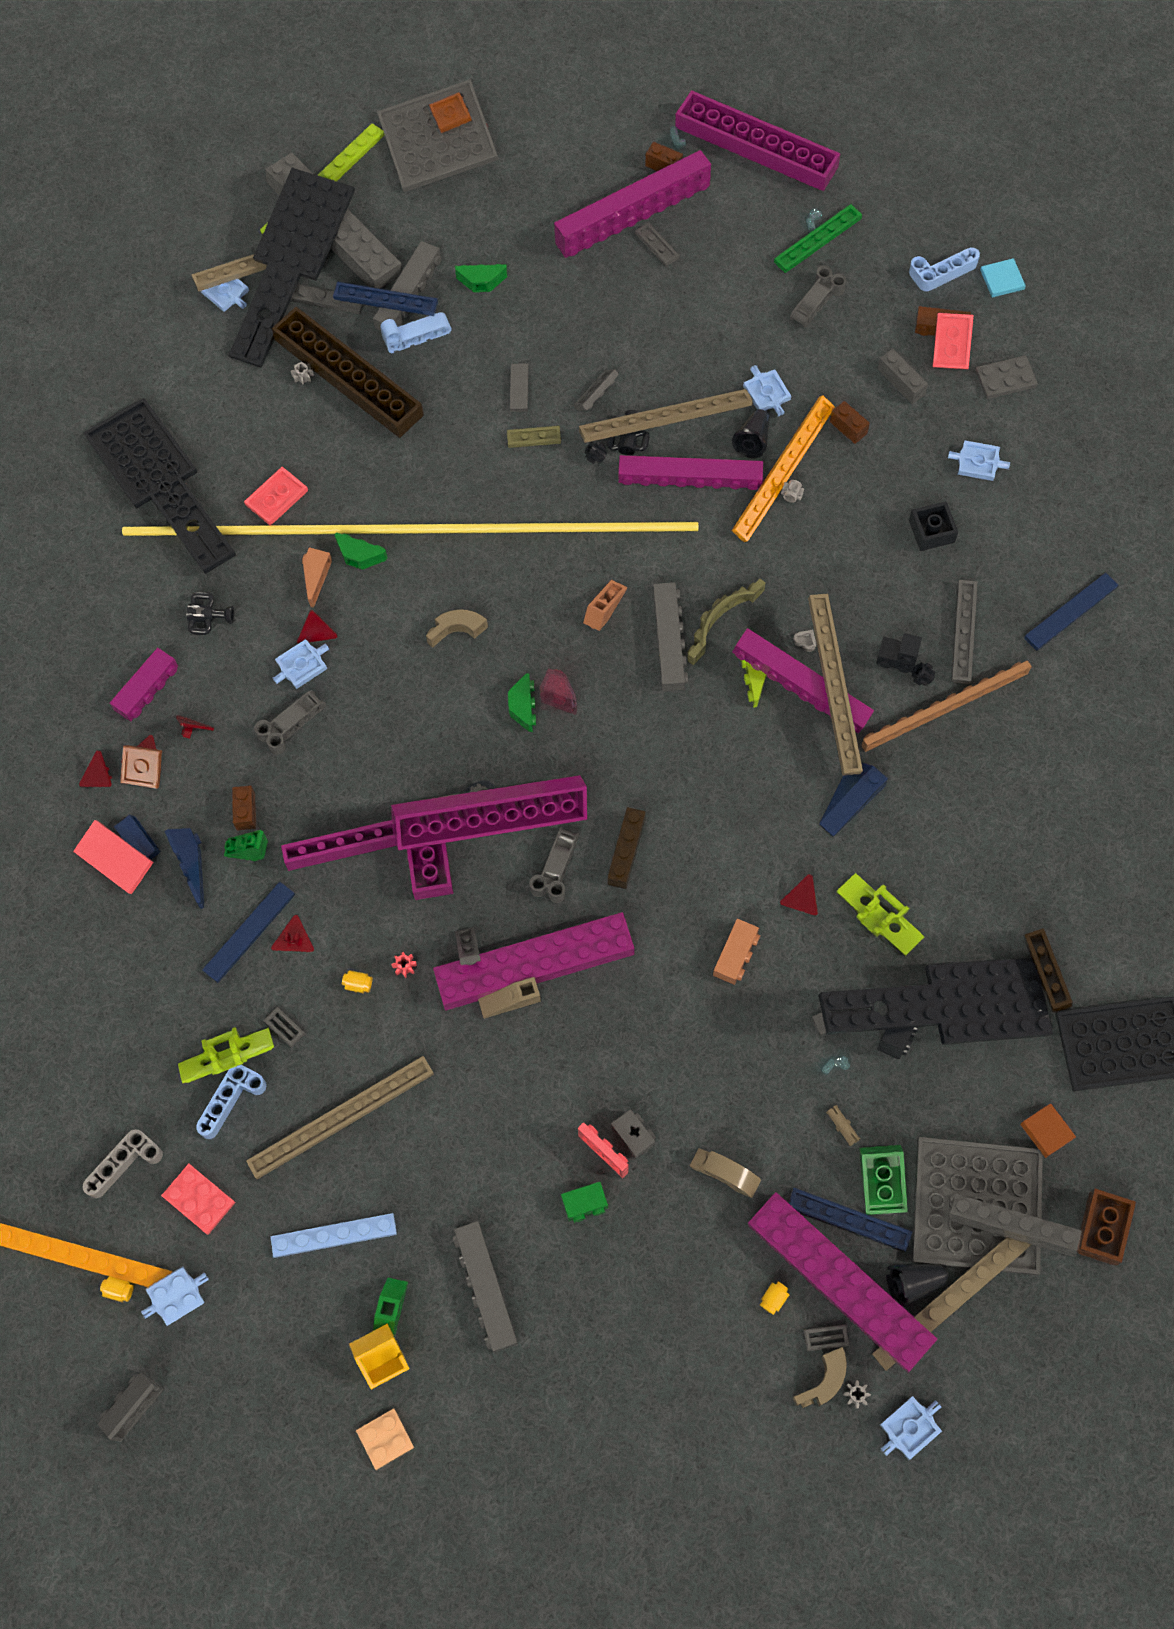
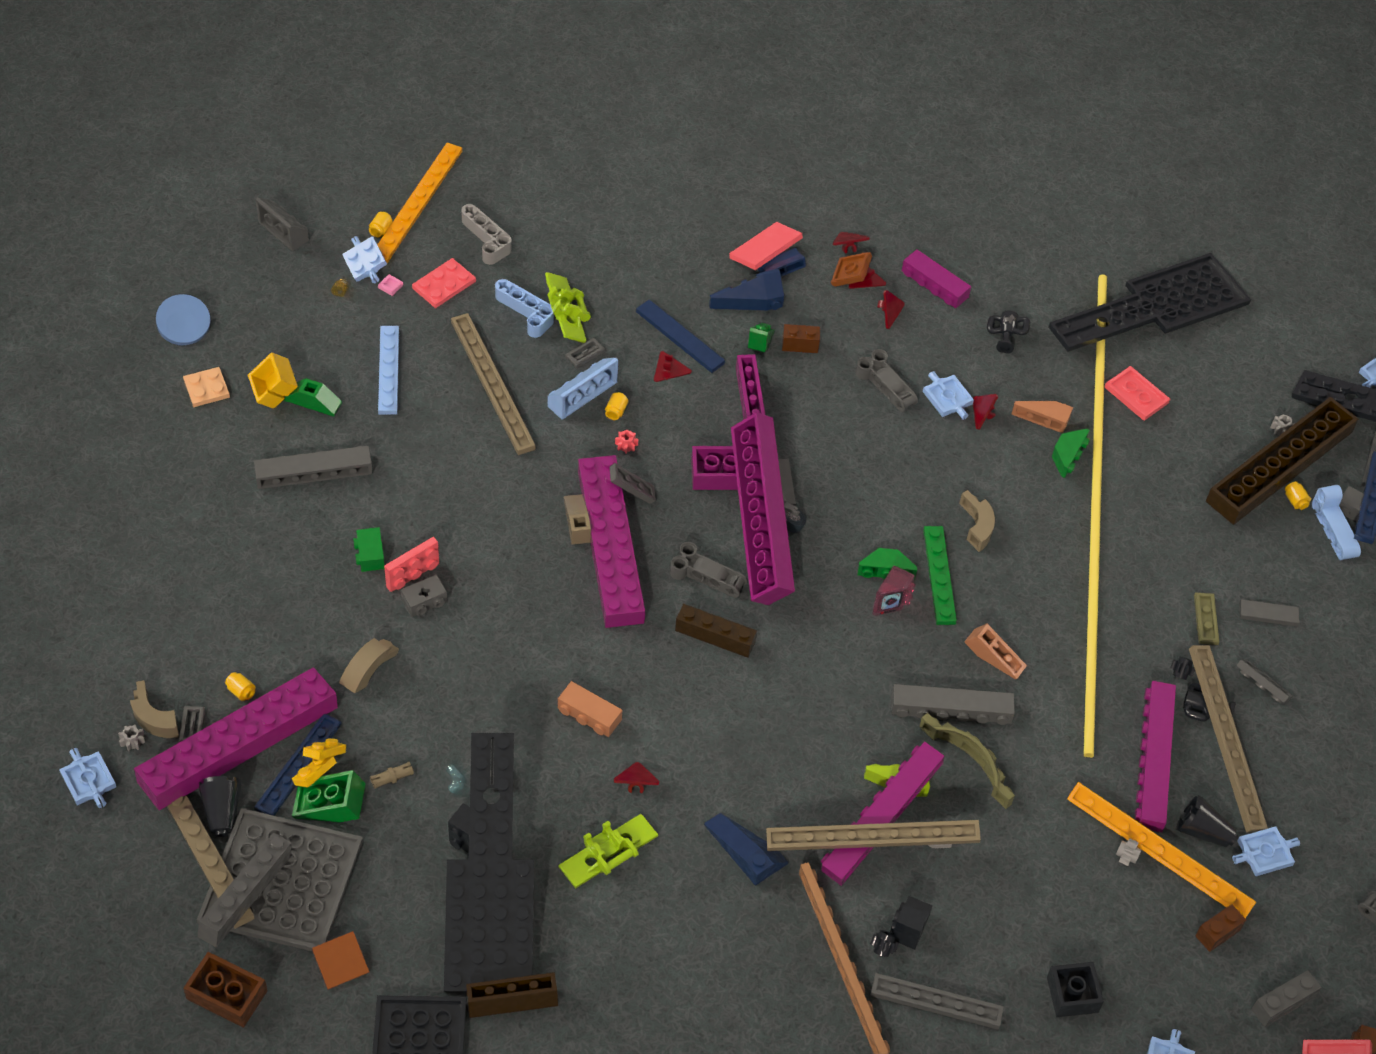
camera: 90 degrees right, 15 degrees down
(207, 1259) = (390, 285): none -> bright pink tile
(216, 1316) = (341, 285): none -> clear yellow hose
(293, 1491) = (182, 319): none -> medium blue piece
(339, 1018) = (583, 387): none -> light blue slope
(385, 361) = (1297, 495): none -> yellow brick
(522, 658) = (939, 575): none -> green plate
(837, 1192) = (325, 749): none -> yellow plate
(857, 1199) = (313, 771): none -> yellow plate

